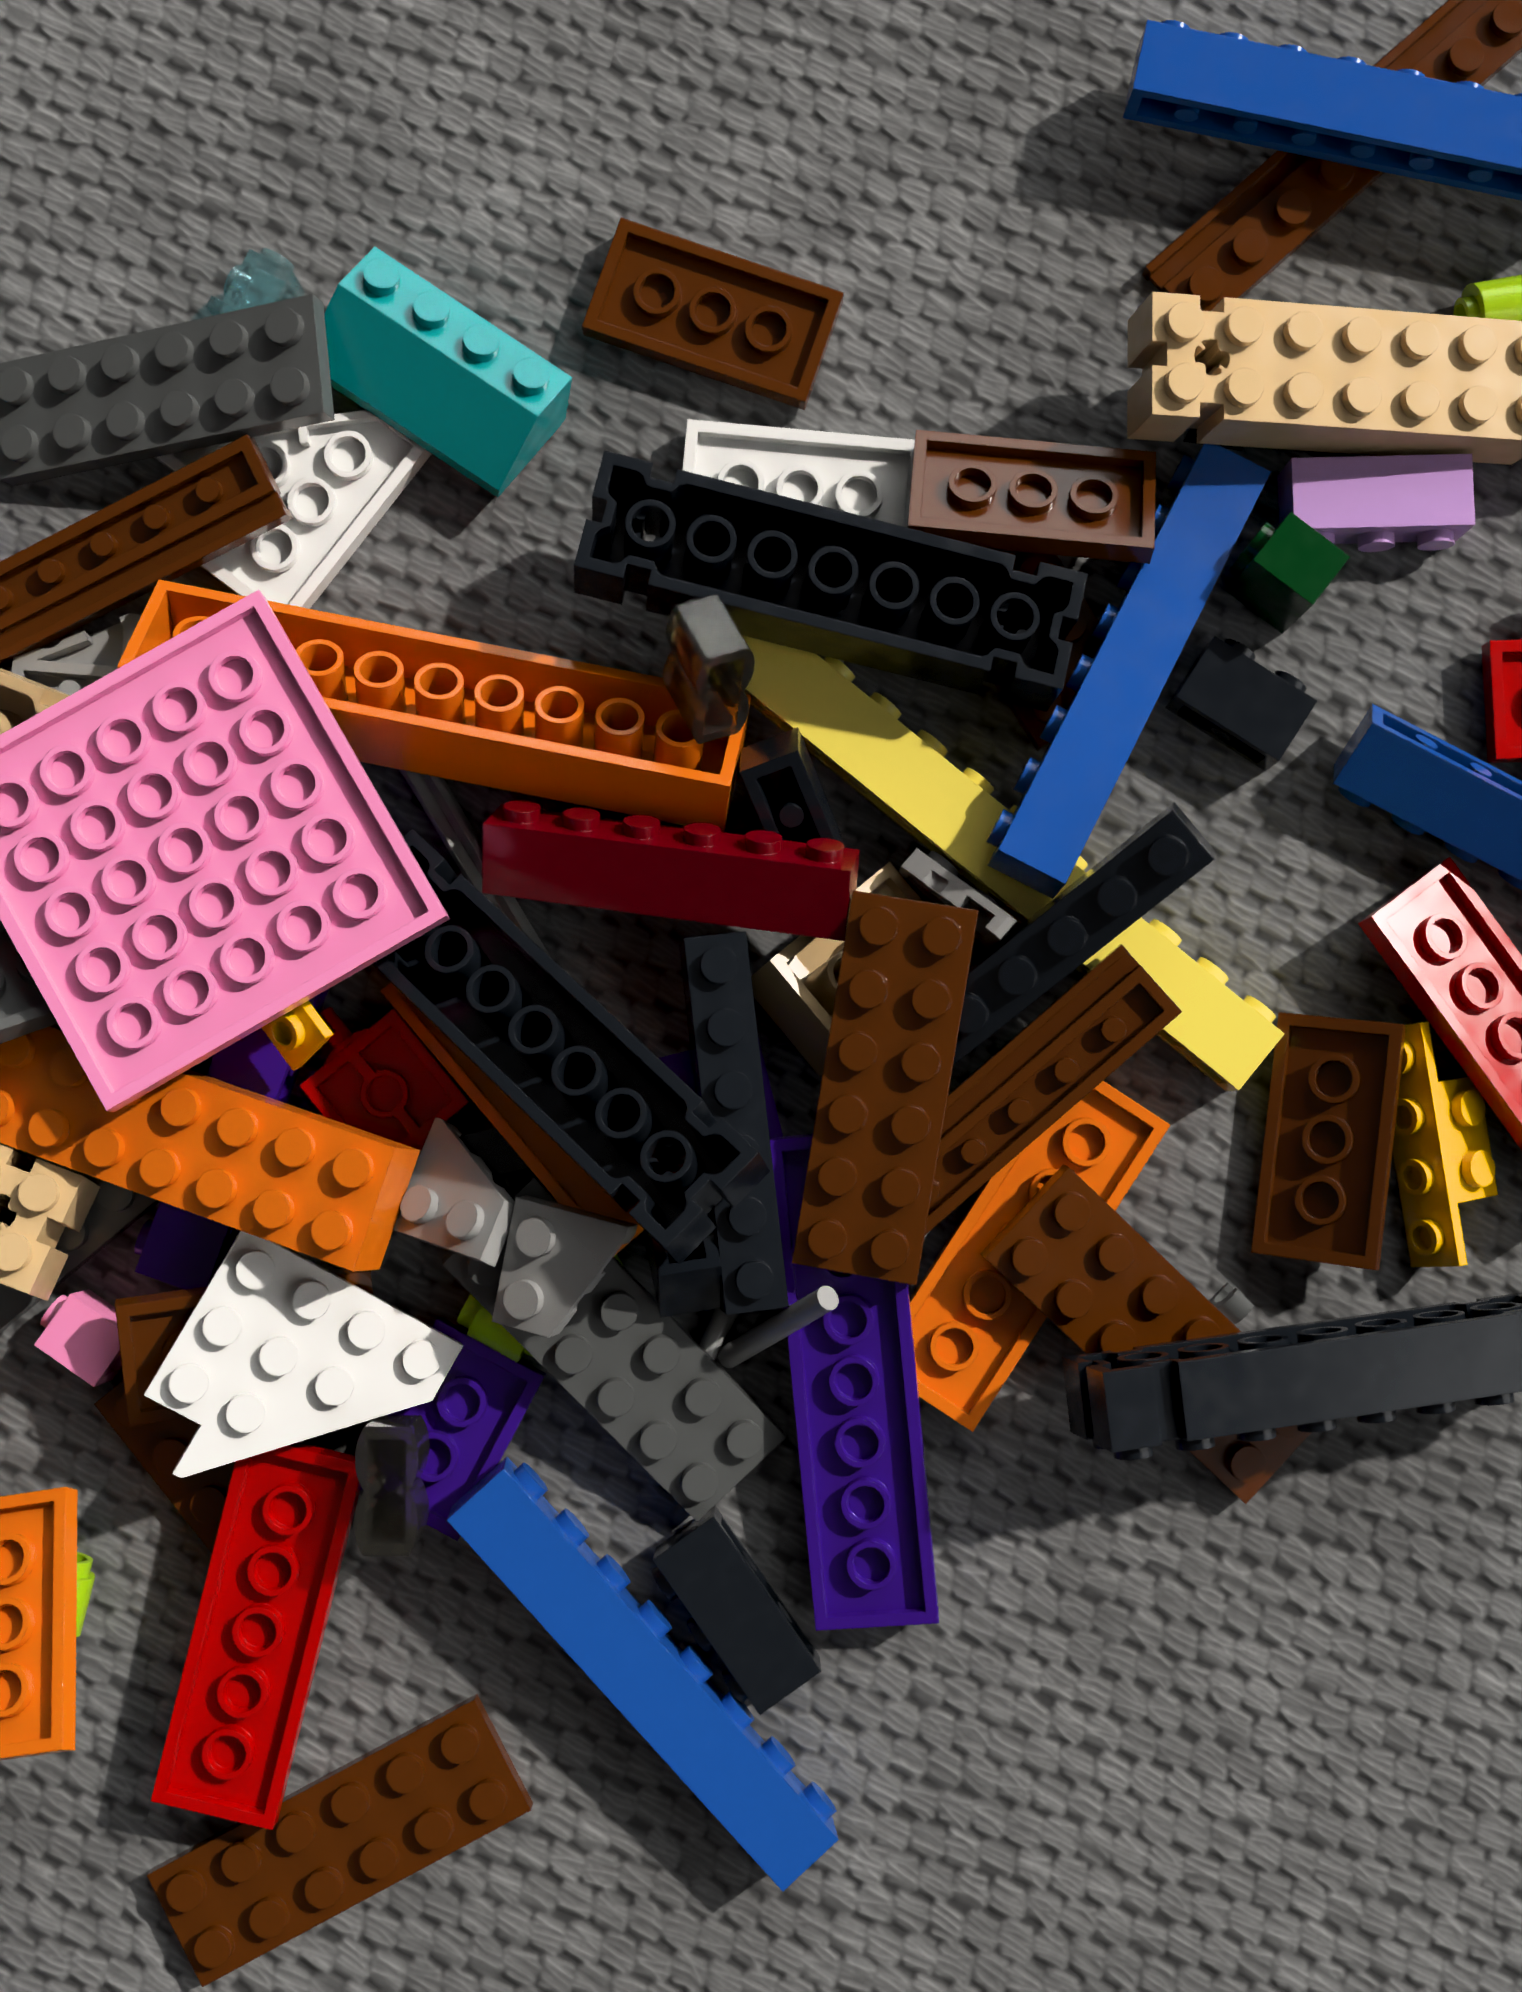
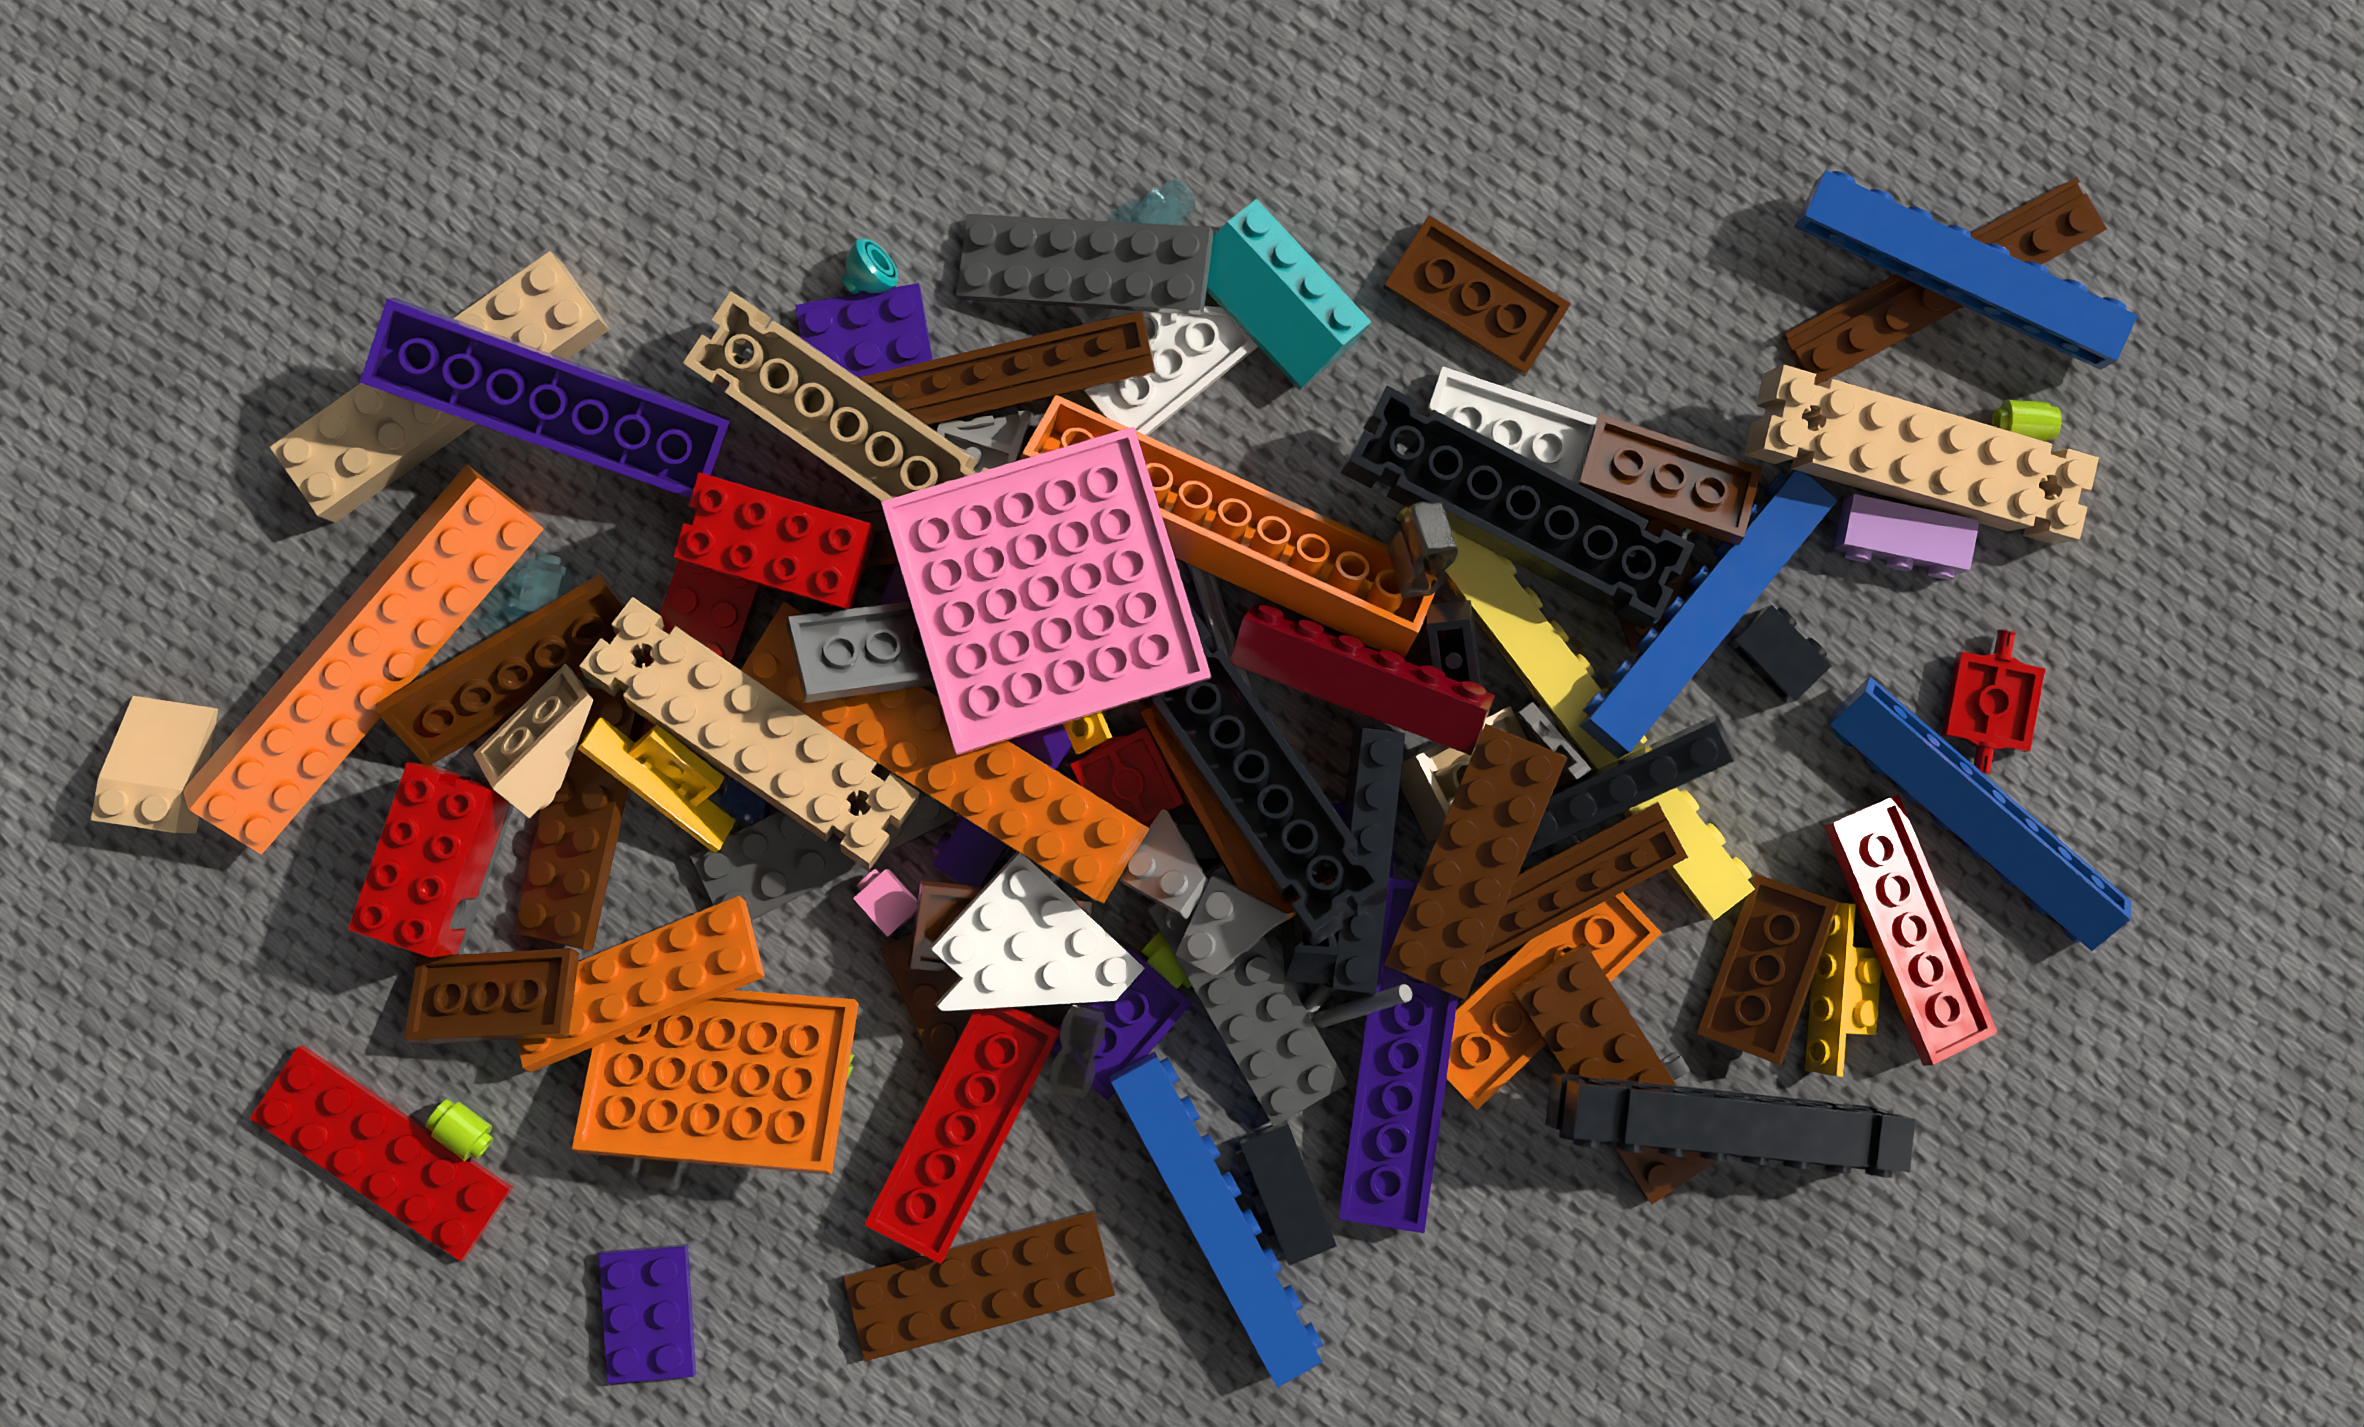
camera: 10 degrees right, 0 degrees up
(1285, 571) = (1830, 572): dark green brick -> none

